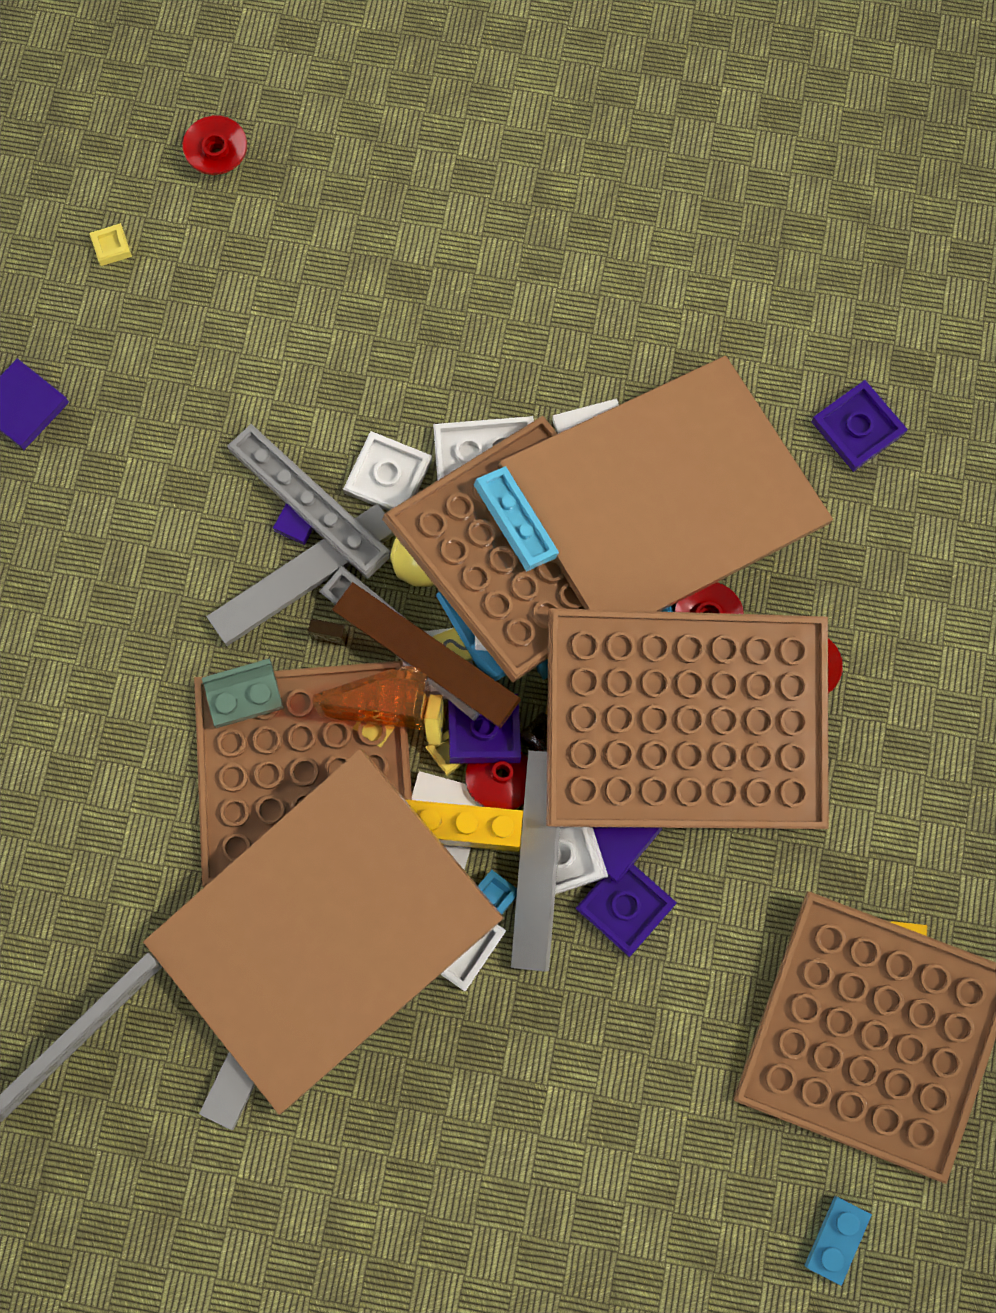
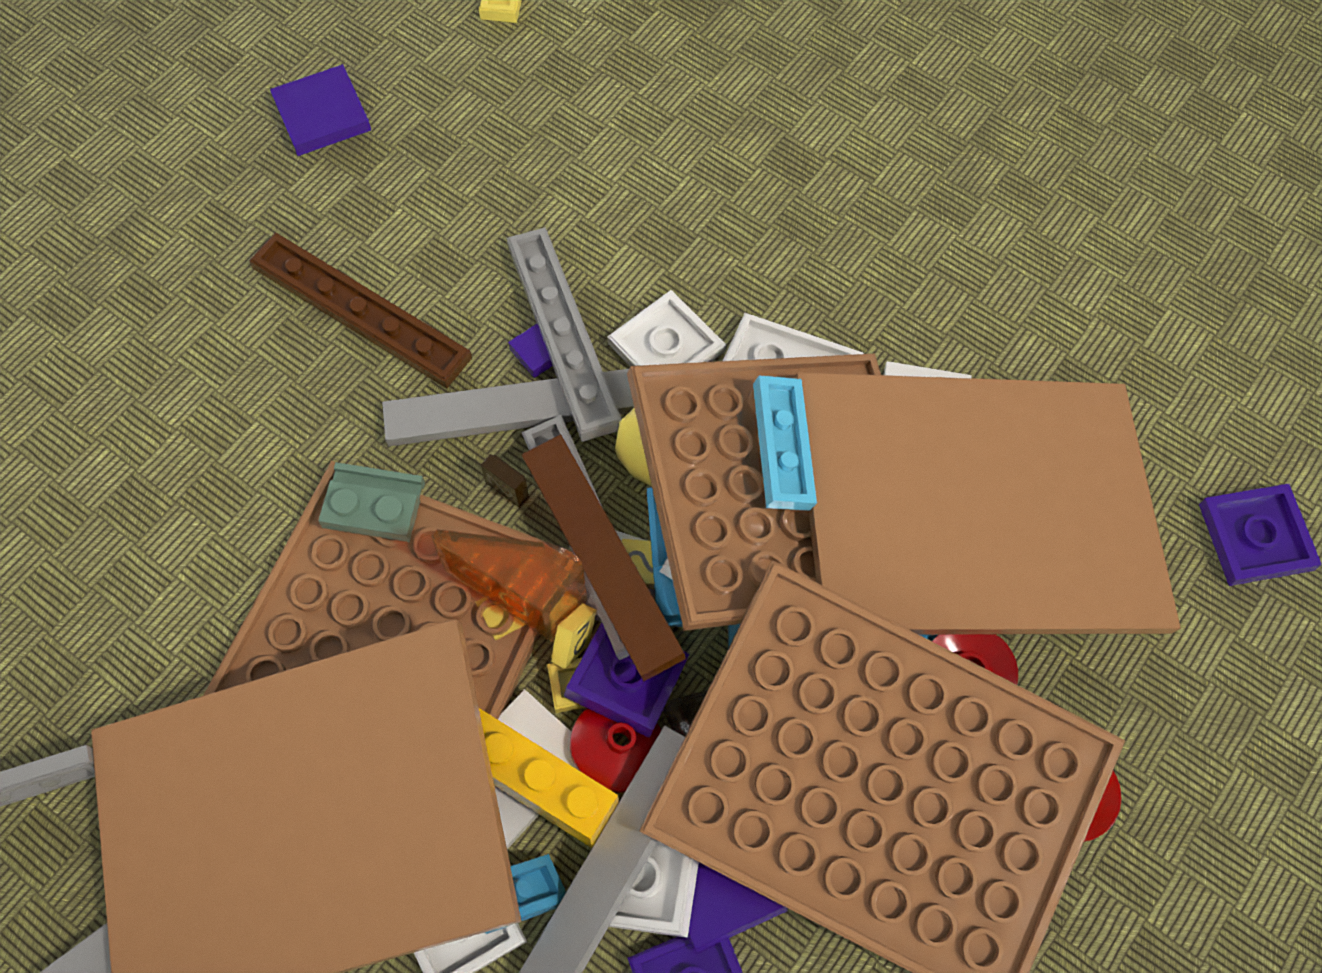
camera: 25 degrees right, 10 degrees down
(146, 552) = (361, 310): none -> reddish brown tile

